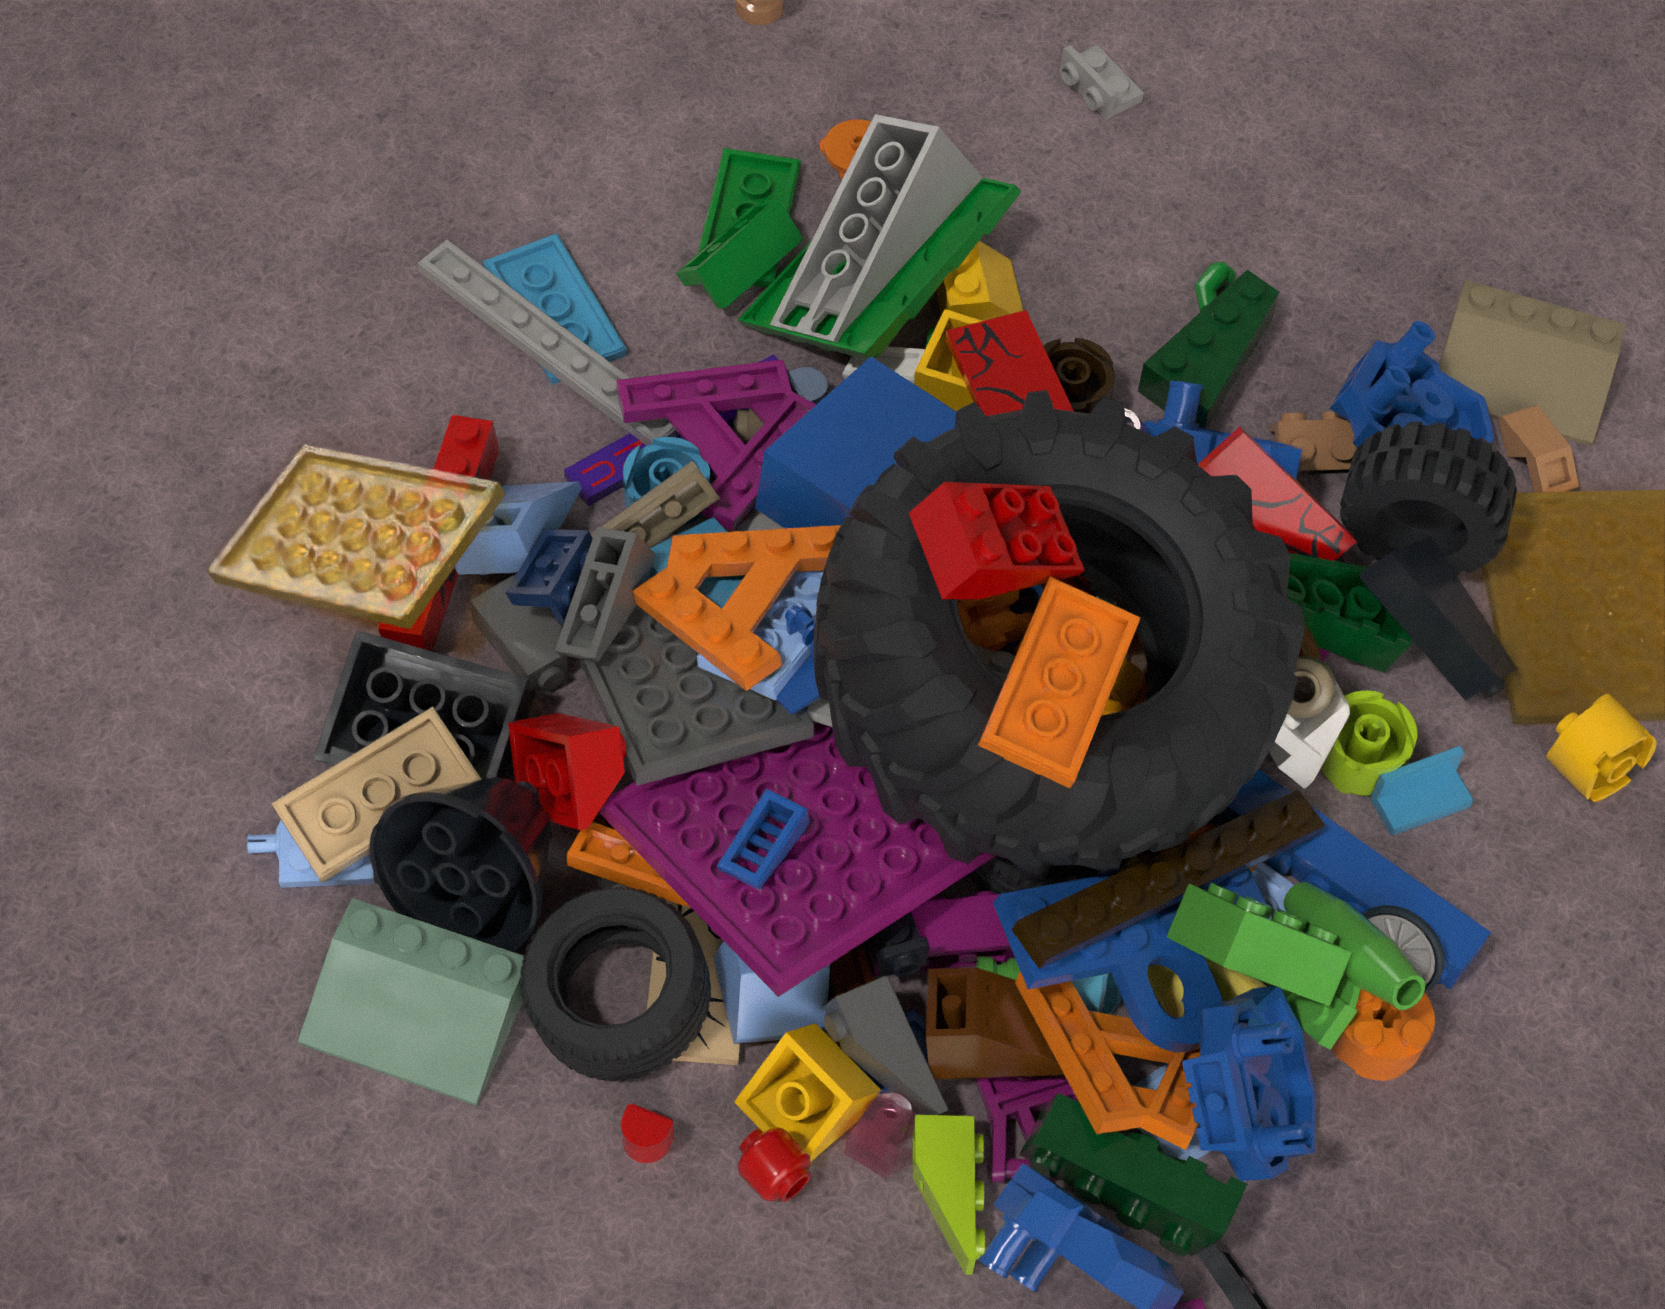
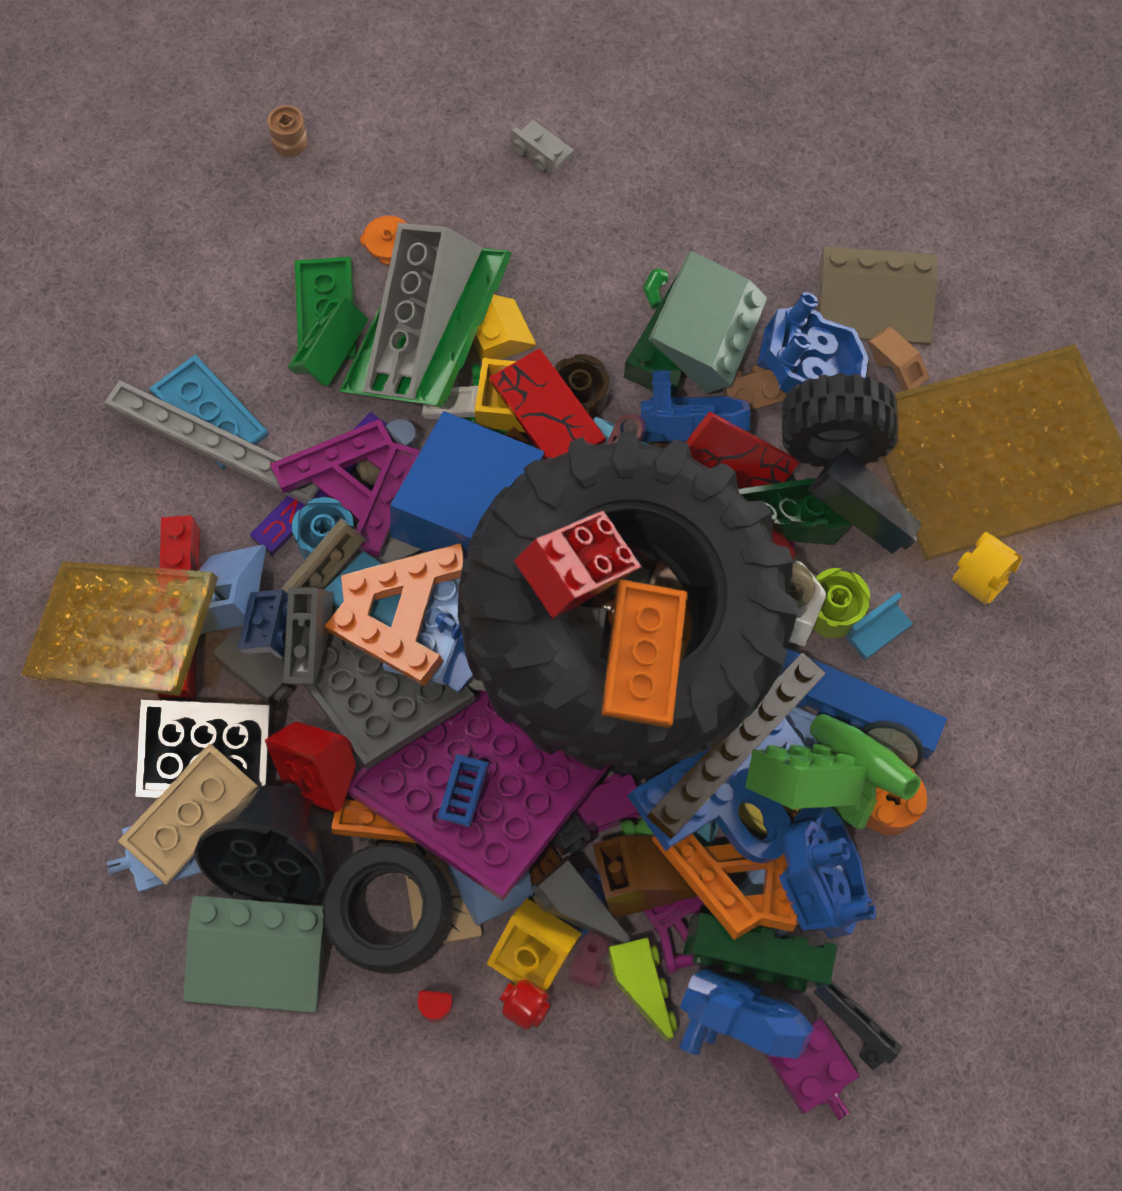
camera: 15 degrees left, 10 degrees up
(1273, 337) = (708, 321): none -> sand green slope

